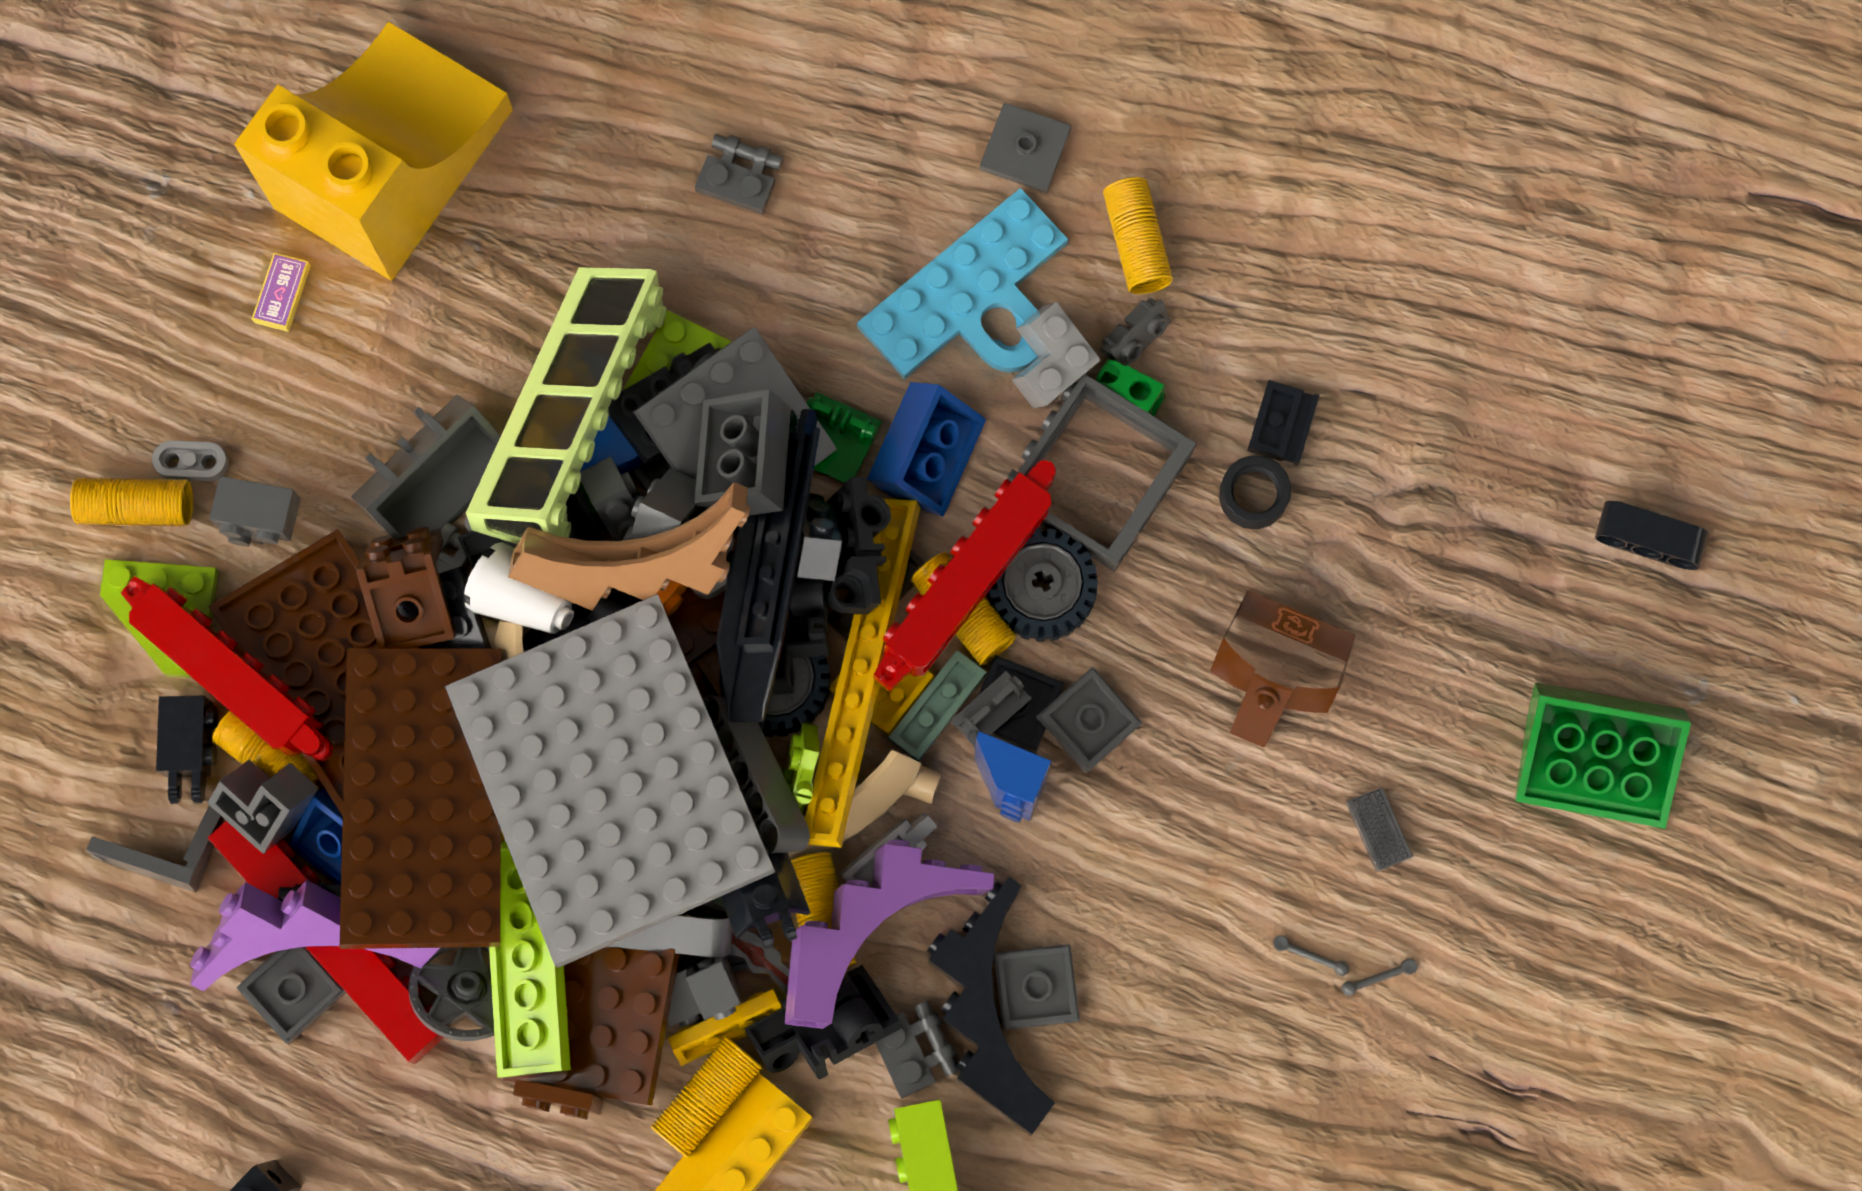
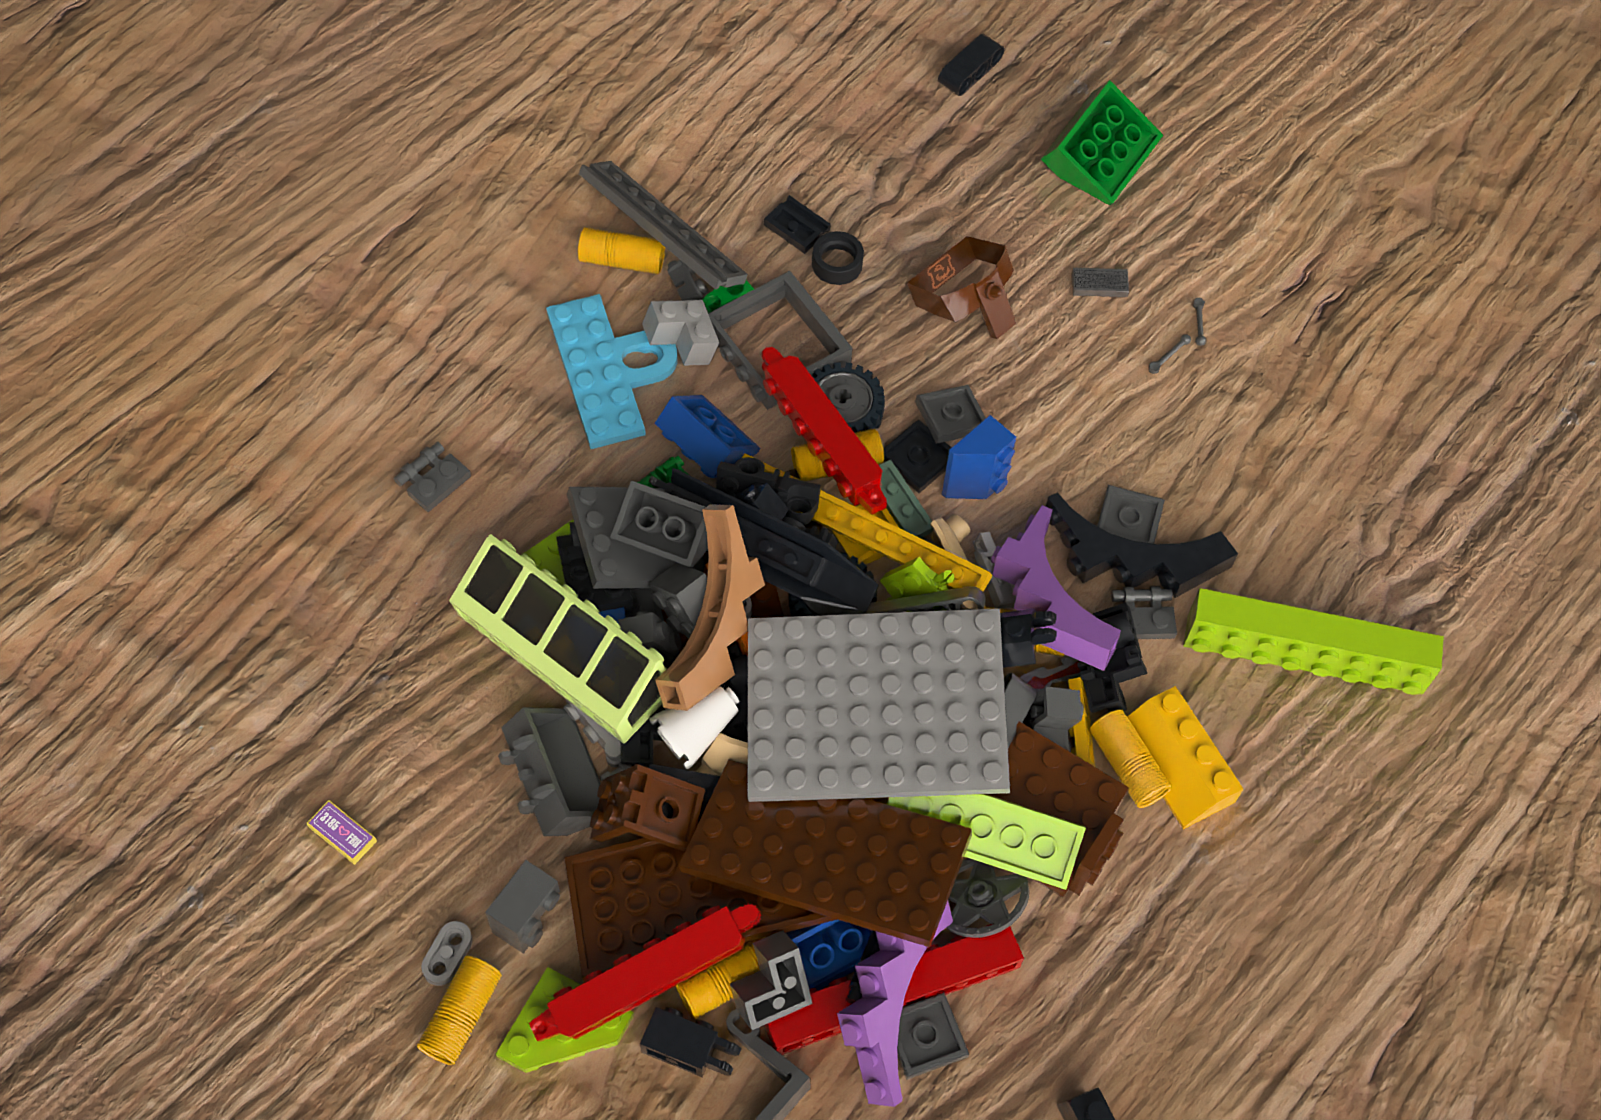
camera: 70 degrees left, 15 degrees down
(375, 147) = (276, 703): yellow brick -> none
(991, 707) = (919, 464): dark grey hinge -> none
(1025, 147) = (517, 295): dark grey plate -> none
(1190, 265) = (663, 225): none -> dark grey plate

